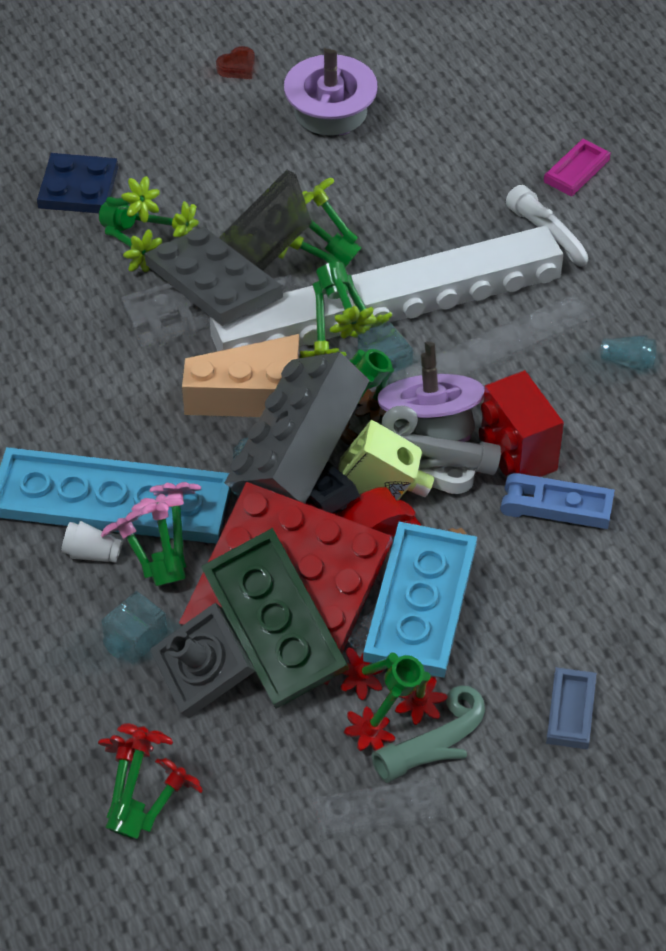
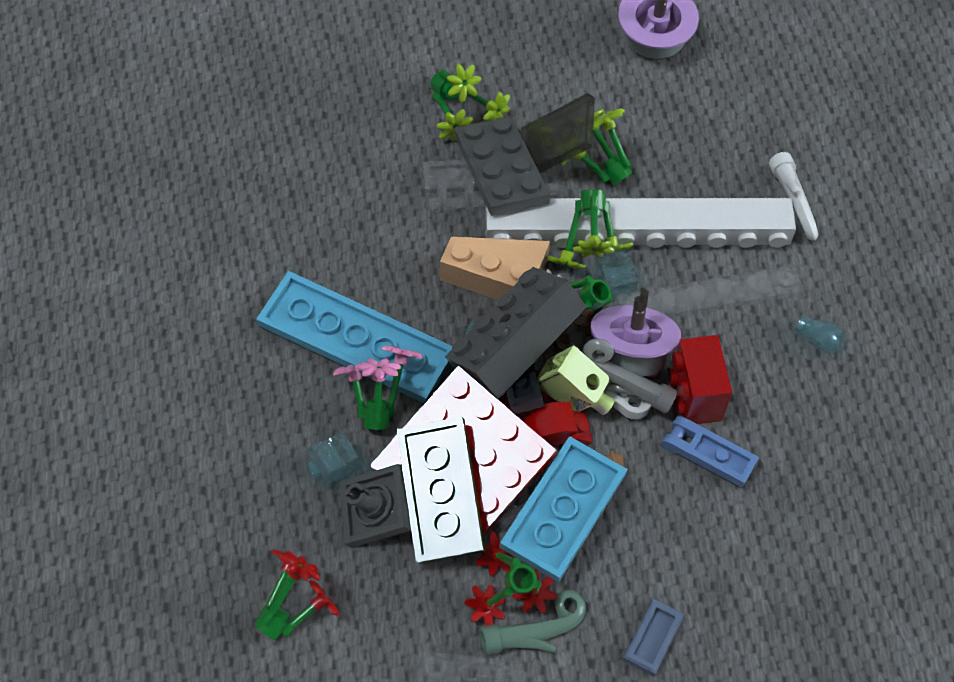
camera: 15 degrees right, 10 degrees up
(77, 182) = (425, 44): dark blue plate -> none
(86, 543) = (320, 371): white cone -> none
(577, 167) = (842, 145): dark pink tile -> none

